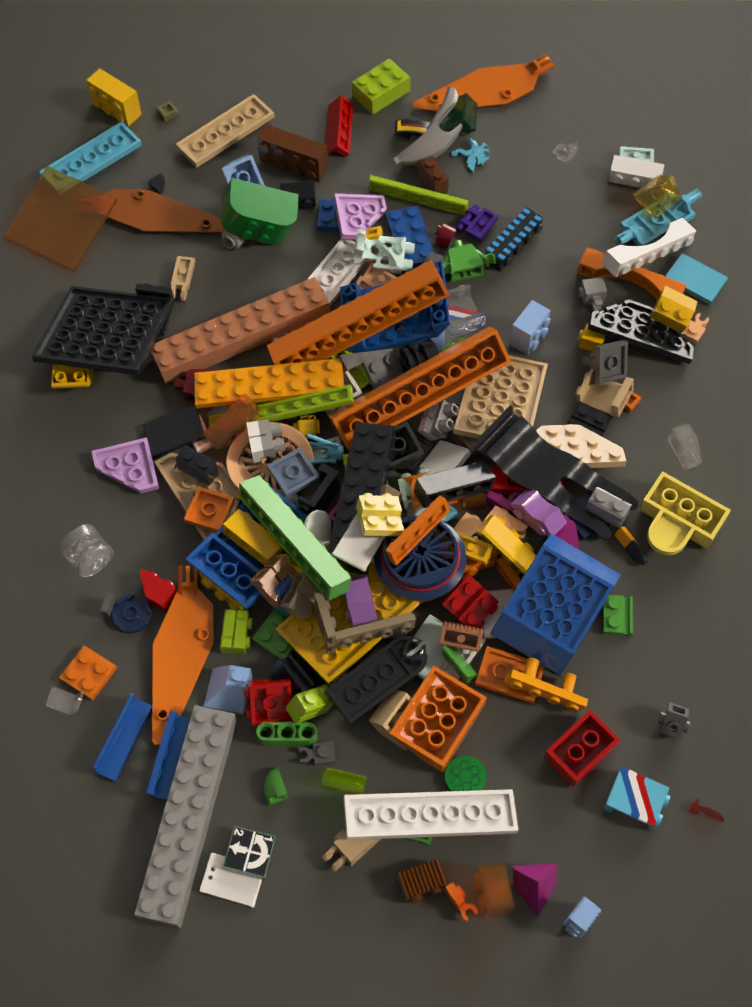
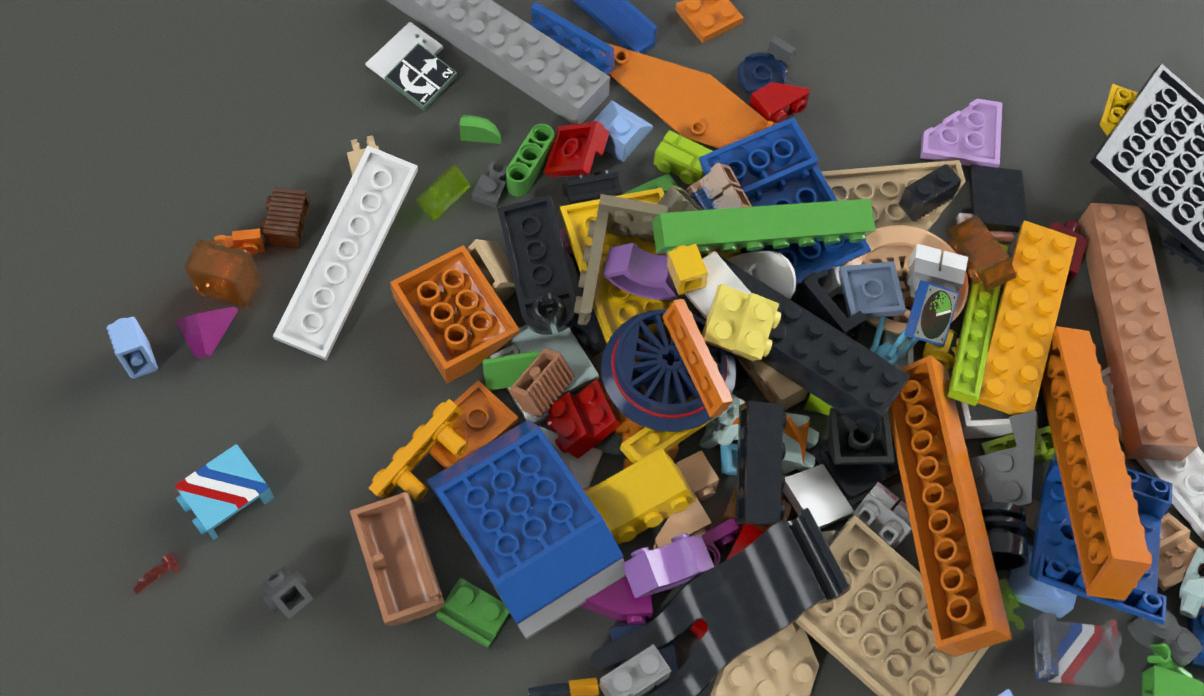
camera: 110 degrees right, 0 degrees up
(86, 550) = (860, 47): clear wheel -> none
(209, 509) = (861, 180): orange plate -> none
(251, 537) = (806, 188): yellow brick -> none
(301, 427) = (931, 313): none -> tile
(309, 704) = (548, 181): lime brick -> none
(359, 559) = (687, 269): none -> yellow brick
(465, 774) = (374, 319): green tile -> none
(581, 748) = (320, 456): red brick -> none
(615, 669) = (397, 559): none -> nougat container

